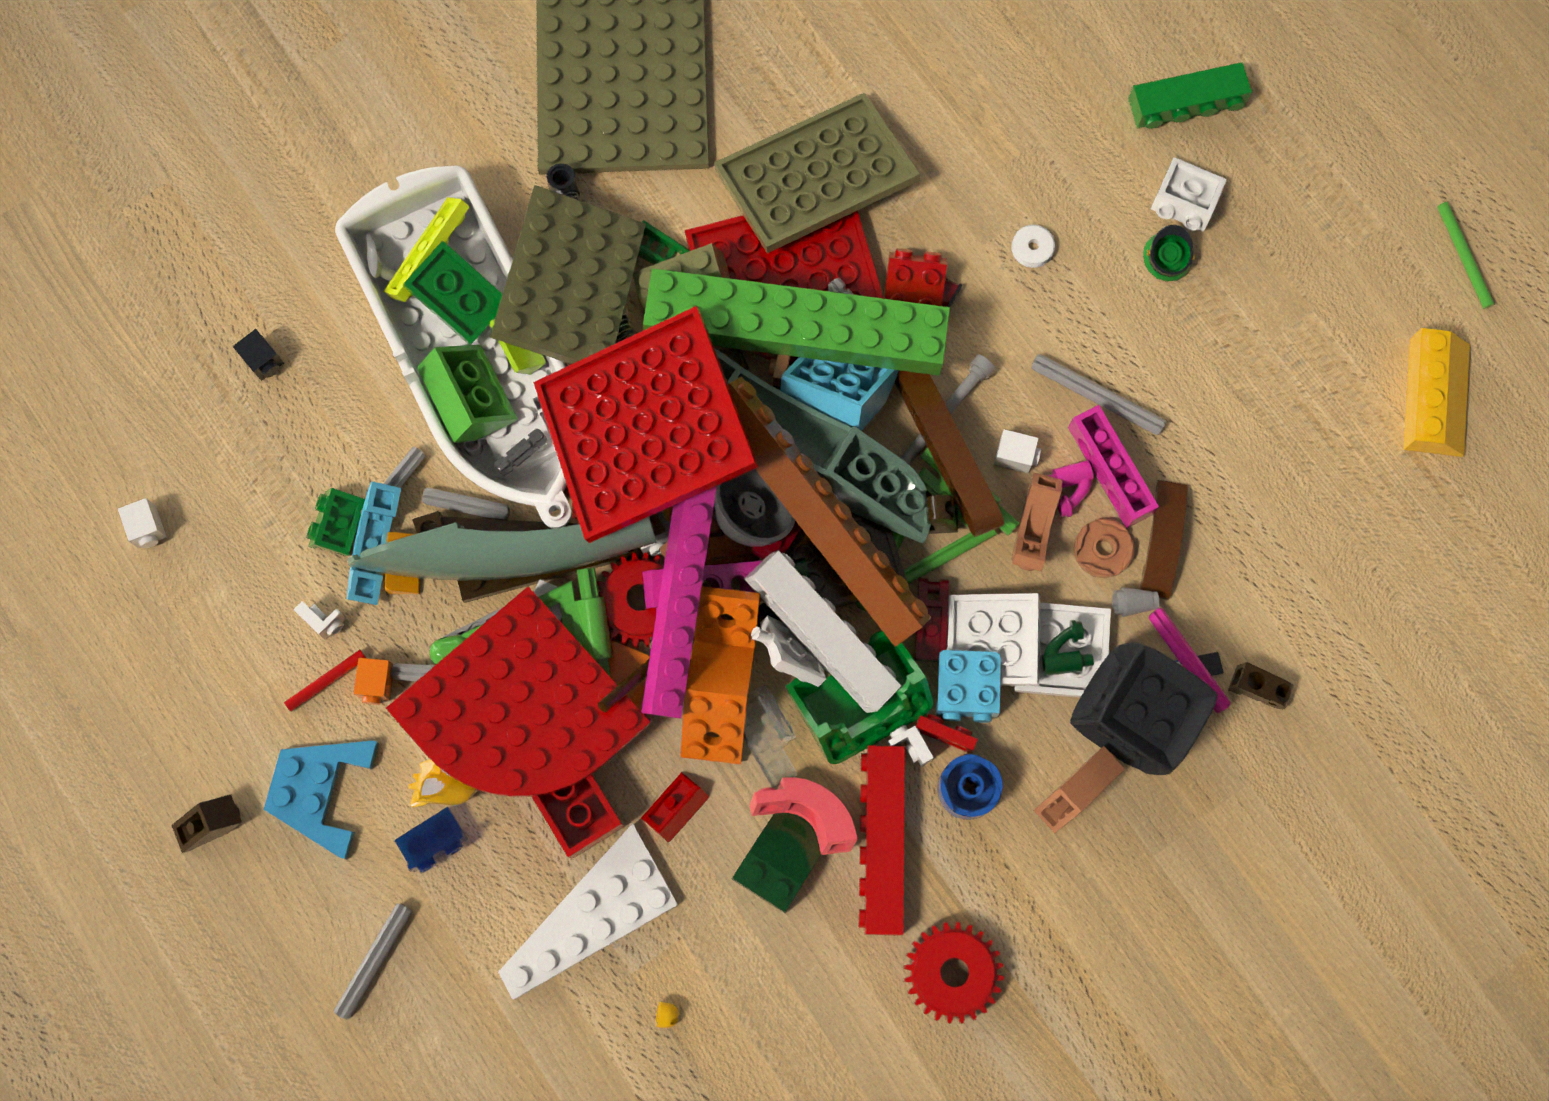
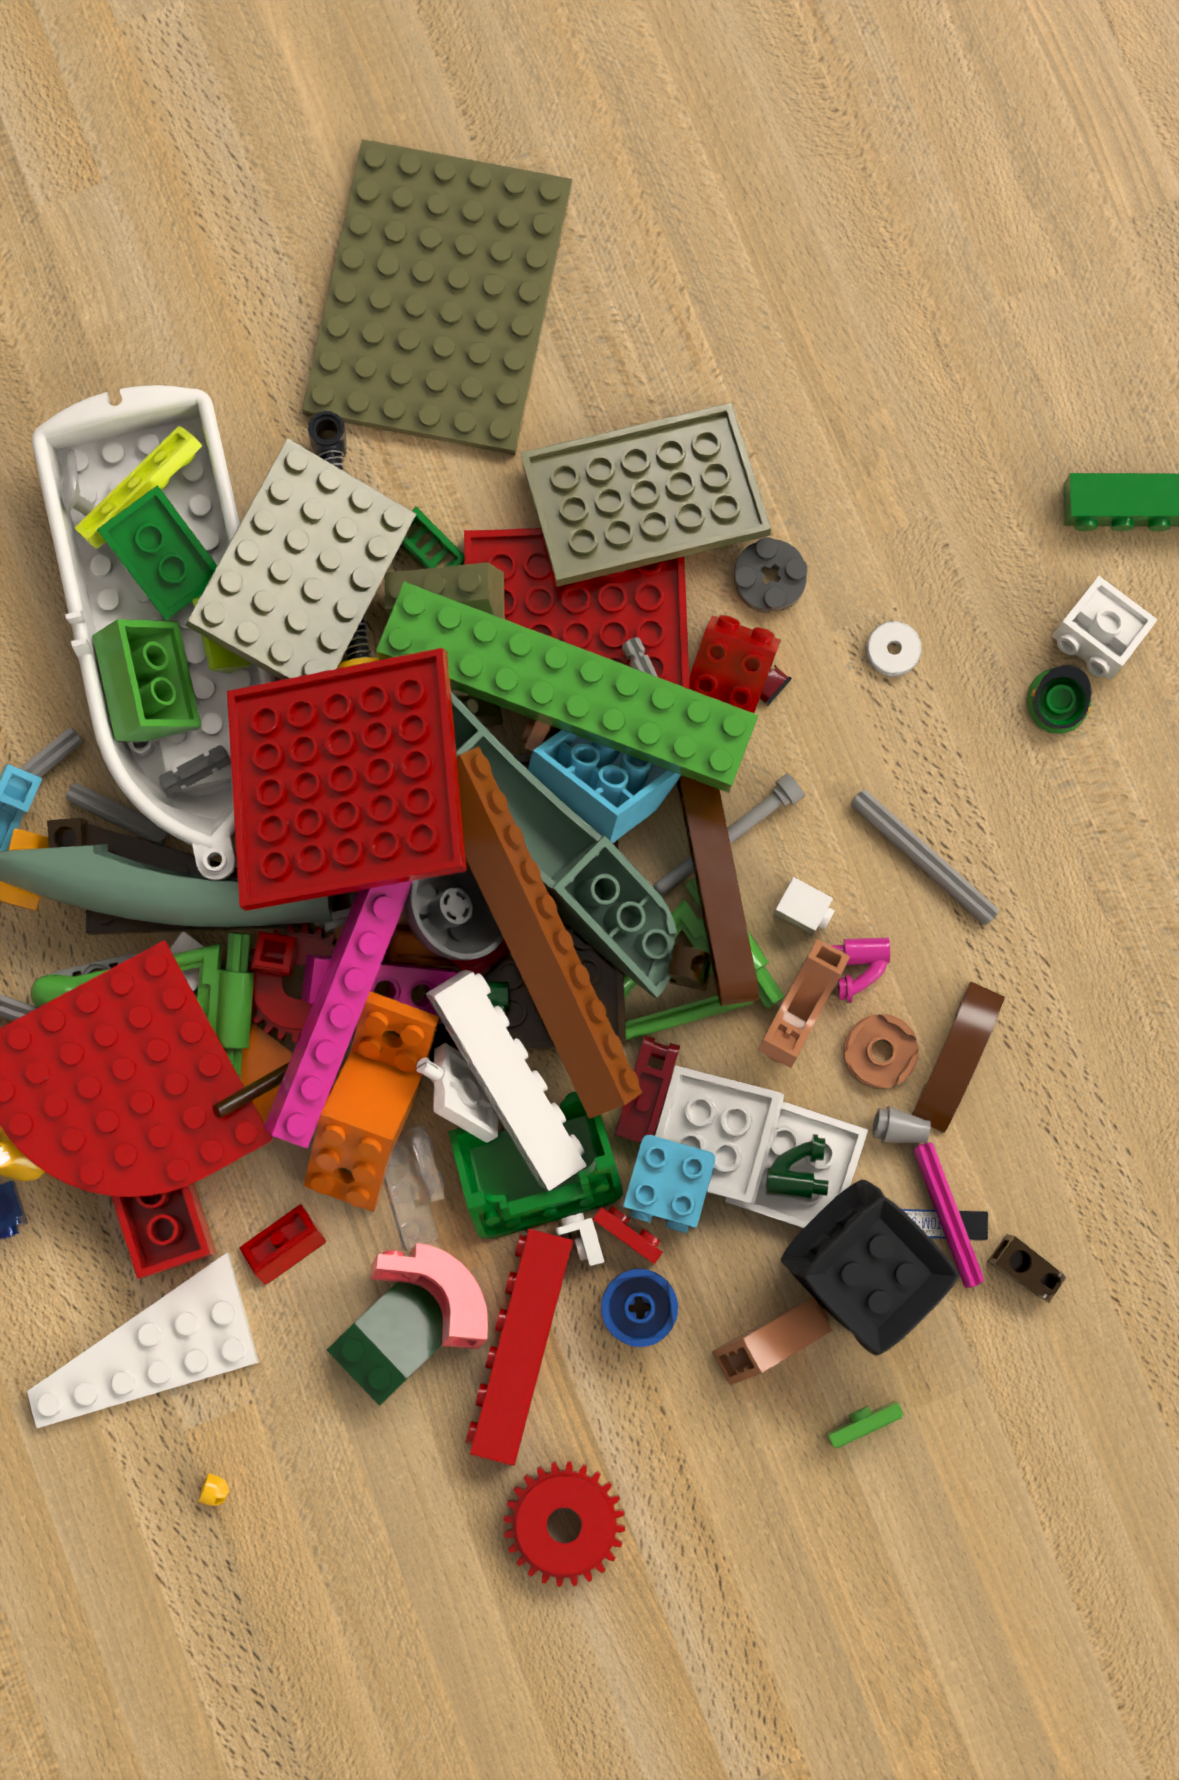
camera: 15 degrees right, 5 degrees up
(617, 578) = (274, 954): none -> red brick
(922, 197) = (773, 596): none -> dark grey plate
(1113, 466) = (916, 954): dark pink brick -> none
(1168, 835) = (864, 1422): none -> bright green plate

